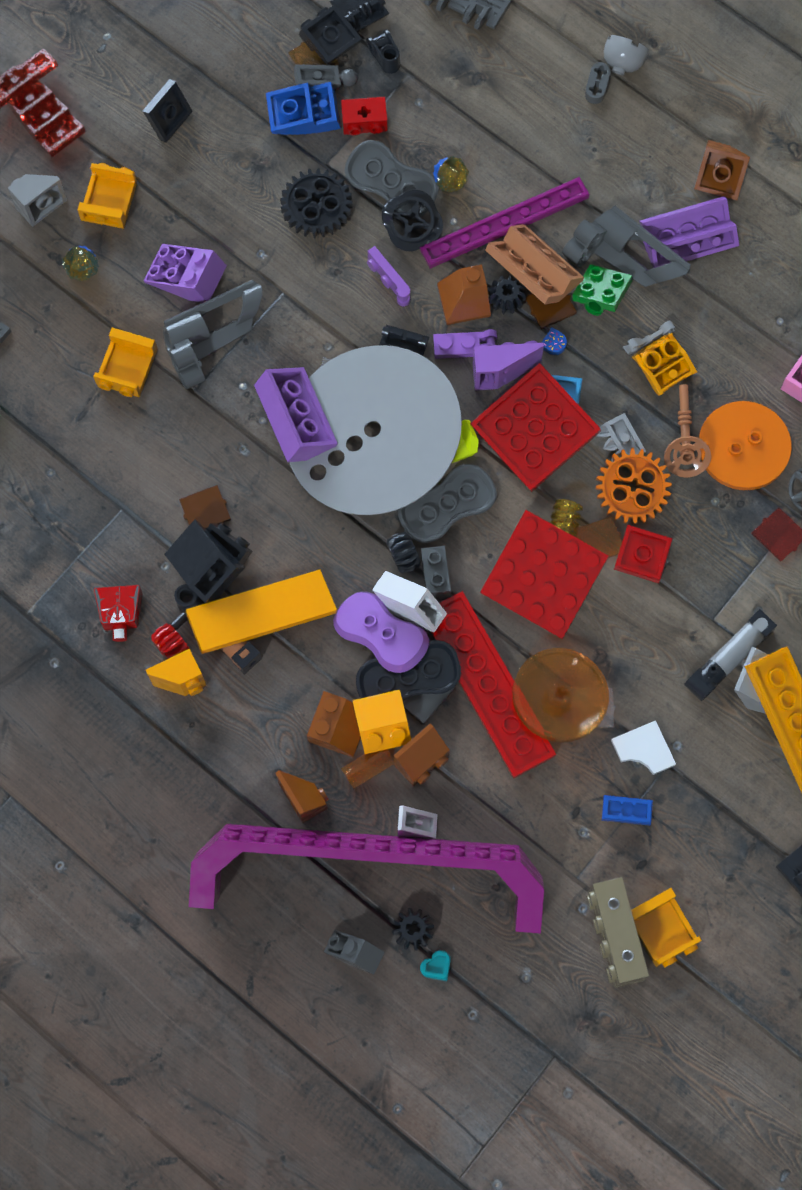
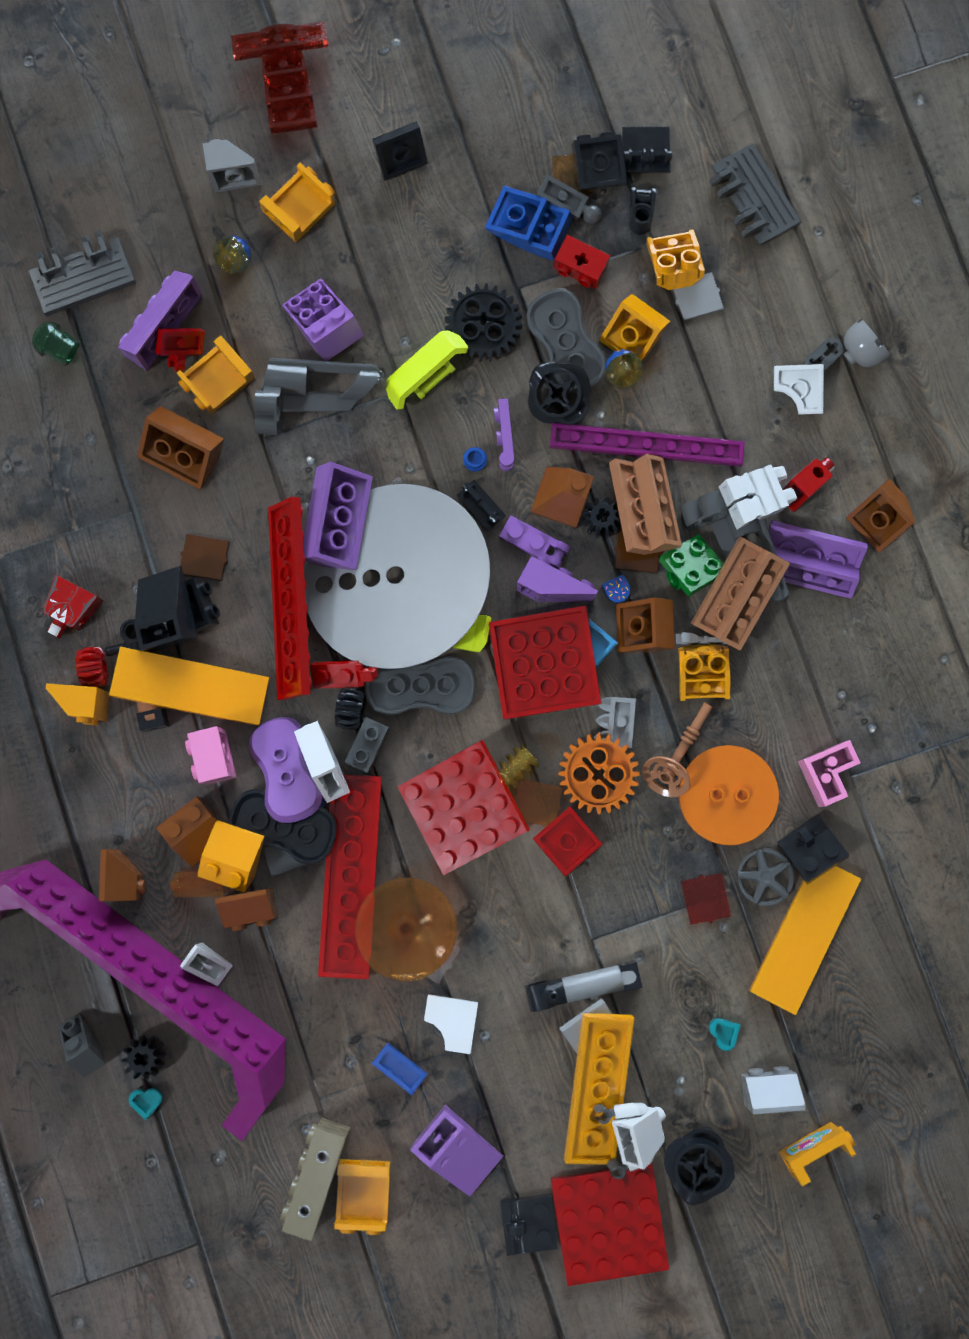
camera: 30 degrees right, 10 degrees up
(52, 344) = (164, 310): none -> medium lavender slope
(80, 354) = (178, 344): none -> red plate
(131, 434) = (179, 447): none -> dark orange slope
(292, 262) = (422, 365): none -> neon yellow piece
(299, 497) = (289, 599): none -> red plate
(315, 653) = (210, 755): none -> bright pink brick
(376, 309) = (475, 459): none -> blue plate
(378, 530) = (341, 674): none -> red hinge
(437, 73) = (676, 260): none -> light orange slope
(437, 140) = (634, 327): none -> light orange slope
(470, 92) = (699, 299): none -> light grey piece
(595, 355) = (645, 626): none -> dark orange slope
(596, 110) = (803, 385): none -> white tile
(622, 200) = (762, 488): none -> white hips
(649, 171) = (809, 481): none -> red torso
(652, 285) = (740, 593): none -> nougat slope
(715, 844) = (456, 1151): none -> medium lavender slope

